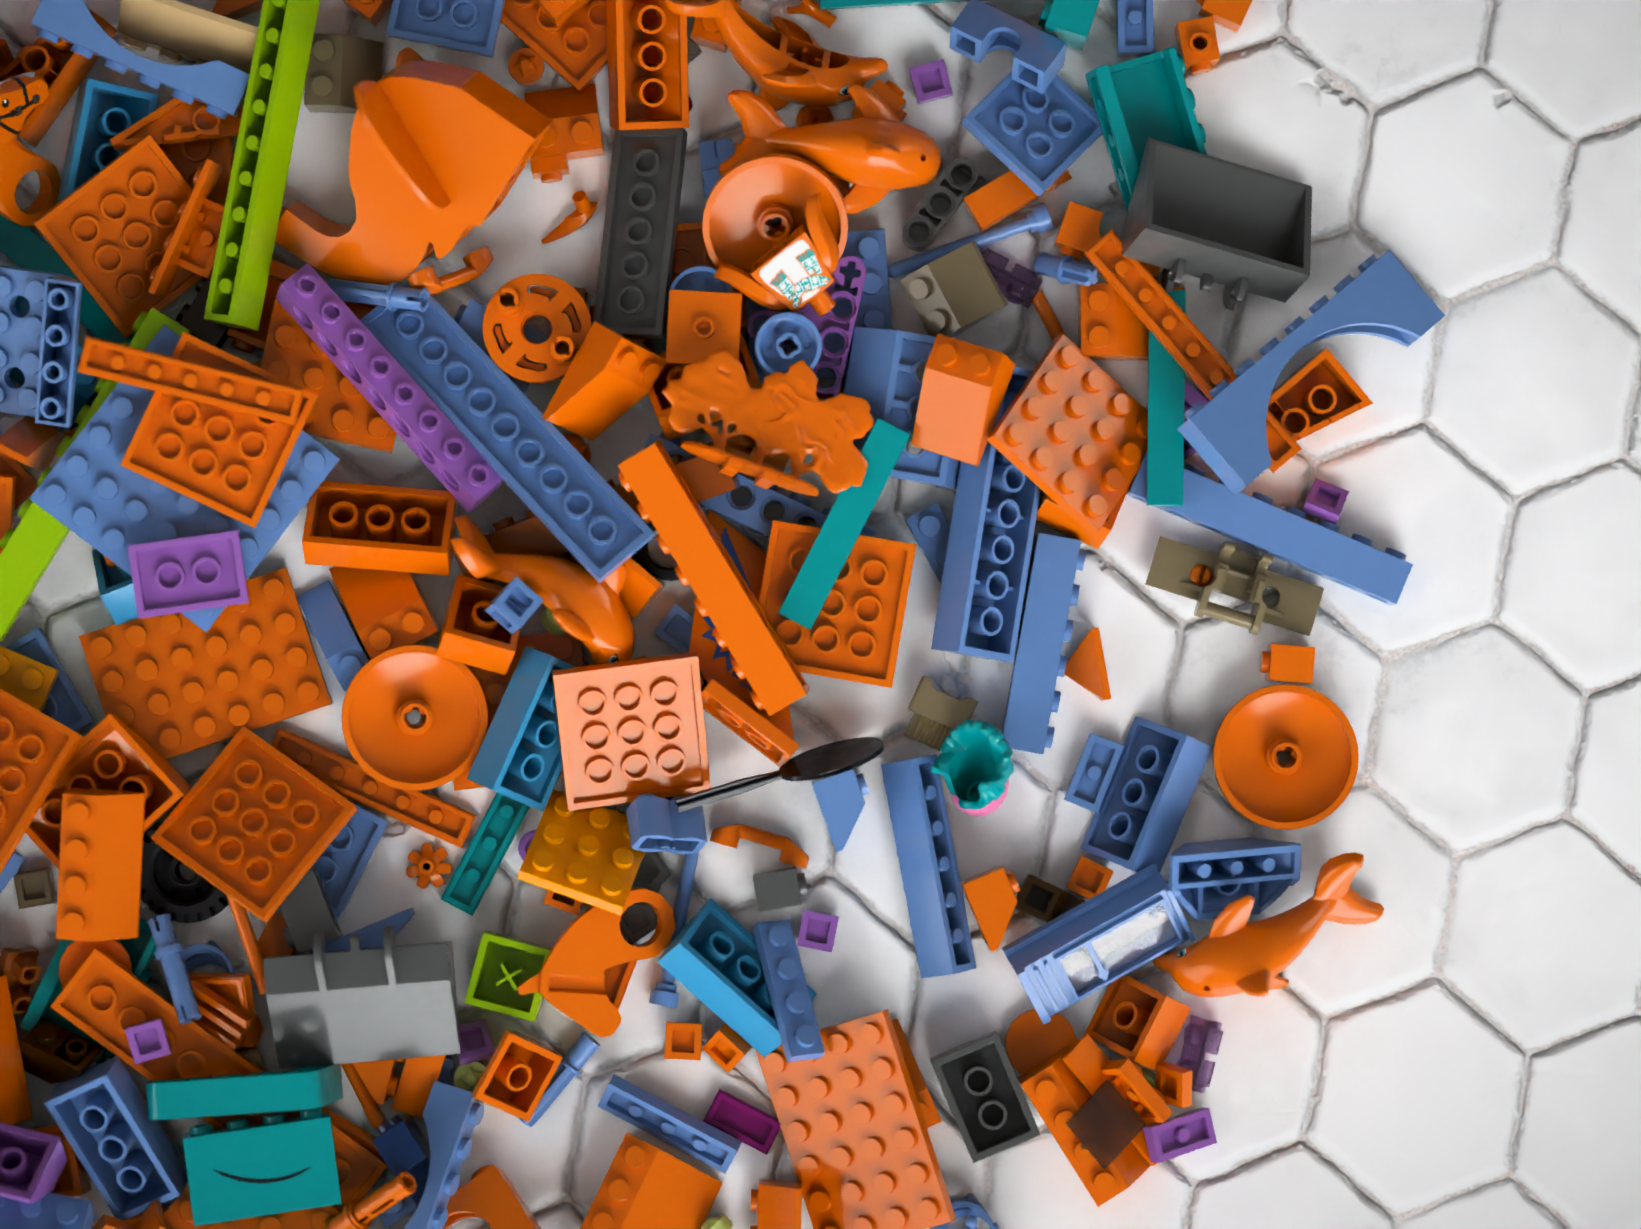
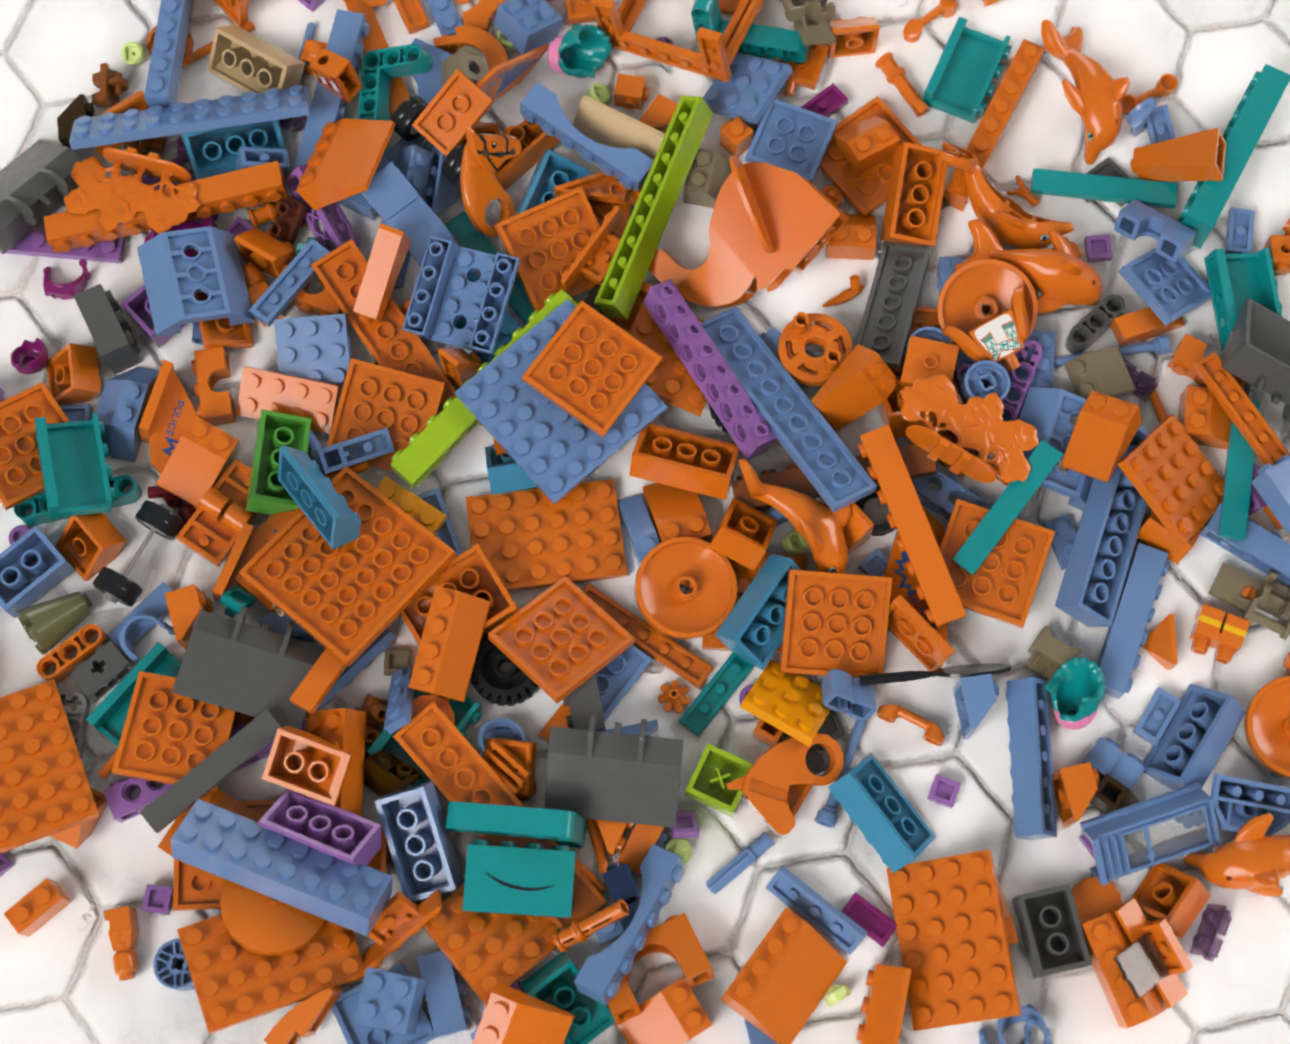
camera: 15 degrees right, 15 degrees down
(49, 953) = (399, 701): none -> medium blue plate
(148, 1040) = (457, 772): medium lavender plate -> none
(174, 968) = (484, 716): medium blue pin -> none
(188, 574) = (552, 458): medium lavender plate -> none
(190, 380) = (580, 331): orange tile -> none
(249, 943) = (540, 721): orange bar -> none
(390, 296) = (717, 311): medium blue axle -> none
(476, 265) = (745, 308): orange bar -> none
(514, 605) = (771, 517): medium blue brick -> none
(517, 1075) = (713, 850): orange slope -> none
(550, 168) = (837, 258): orange plate -> none
(683, 1040) = (835, 851): orange plate -> none
(726, 1048) = (866, 862): orange plate -> none
(779, 889) = (922, 752): dark grey brick -> none
(788, 990) = (919, 826): medium blue plate -> none
(1041, 854) = (1109, 759): none -> medium blue brick
(1065, 269) = (1177, 376): medium blue axle -> none
(1089, 878) = (1146, 788): orange plate -> none
(1148, 639) = (1219, 632): none -> orange hips
(1174, 1084) = (1196, 947): orange plate -> none
(1179, 1135) = (1193, 988): medium lavender plate -> none

